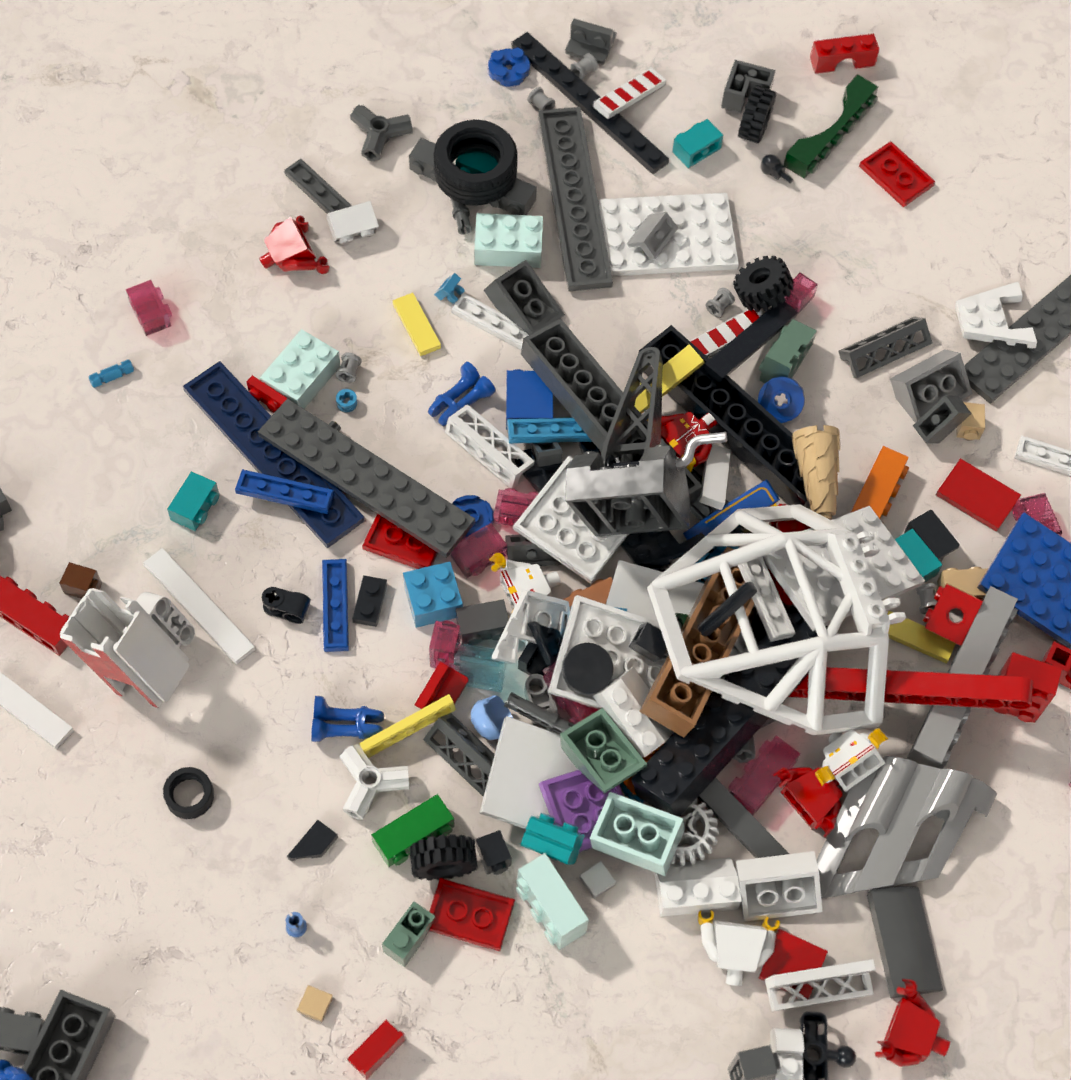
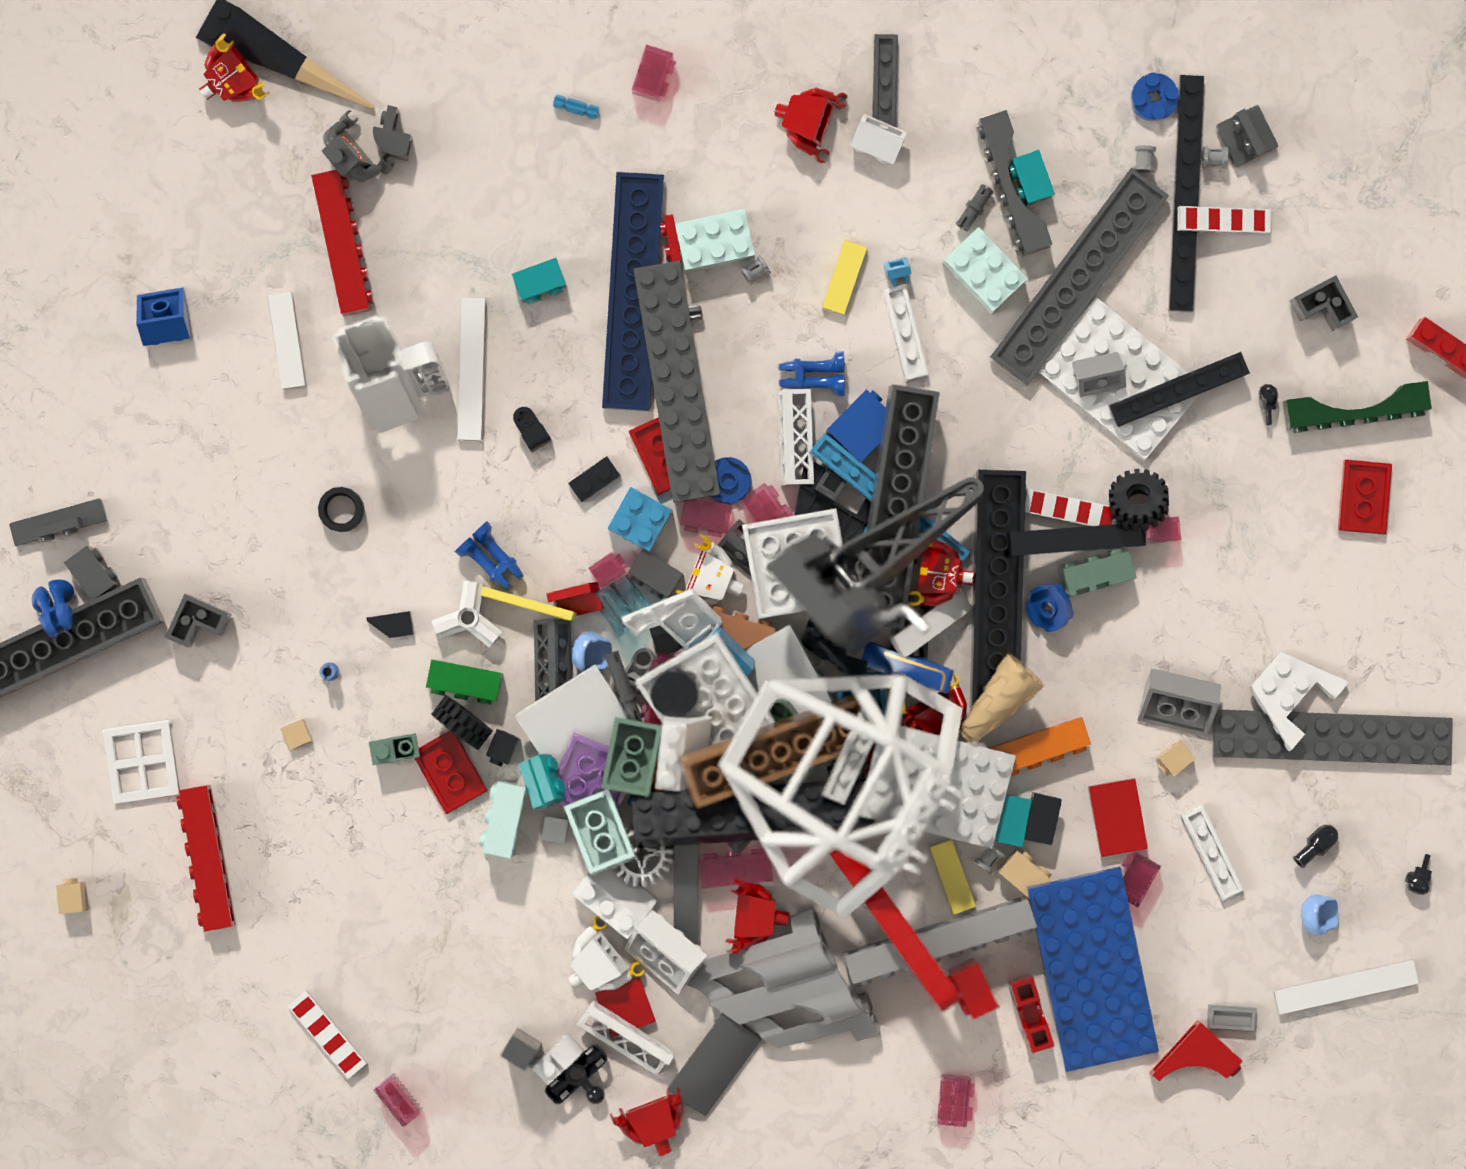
camera: 45 degrees right, 25 degrees up
(79, 580) = (404, 273): reddish brown brick -> none
(138, 979) = (195, 614): none -> dark grey brick
(284, 491) = (609, 337): blue tile -> none
(335, 605) = (567, 459): blue tile -> none
(342, 395) = (729, 288): dark azure bush -> none
(376, 1049) = (307, 802): red panel -> none
(378, 130) = (984, 51): dark grey piece -> none
(475, 137) = (1025, 150): black tyre -> none
(524, 299) = (943, 337): dark grey slope -> none
(548, 641) = (677, 639): black tile -> none
(649, 642) = (735, 712): black brick -> none
(673, 373) = (981, 515): light yellow tile -> none
(697, 143) = (1229, 319): teal brick -> none
(712, 204) = (1179, 389): none -> black tile
(720, 302) = (1094, 479): light grey bush -> none
(727, 609) = (798, 753): black axle -> none
(757, 114) = (1299, 343): black tyre -> none
(851, 757) = (794, 921): white torso -> none
(880, 340) = (1185, 632): dark grey fence -> none
(938, 619) = (993, 880): red brick -> none
(942, 419) = (1148, 740): dark grey brick -> none

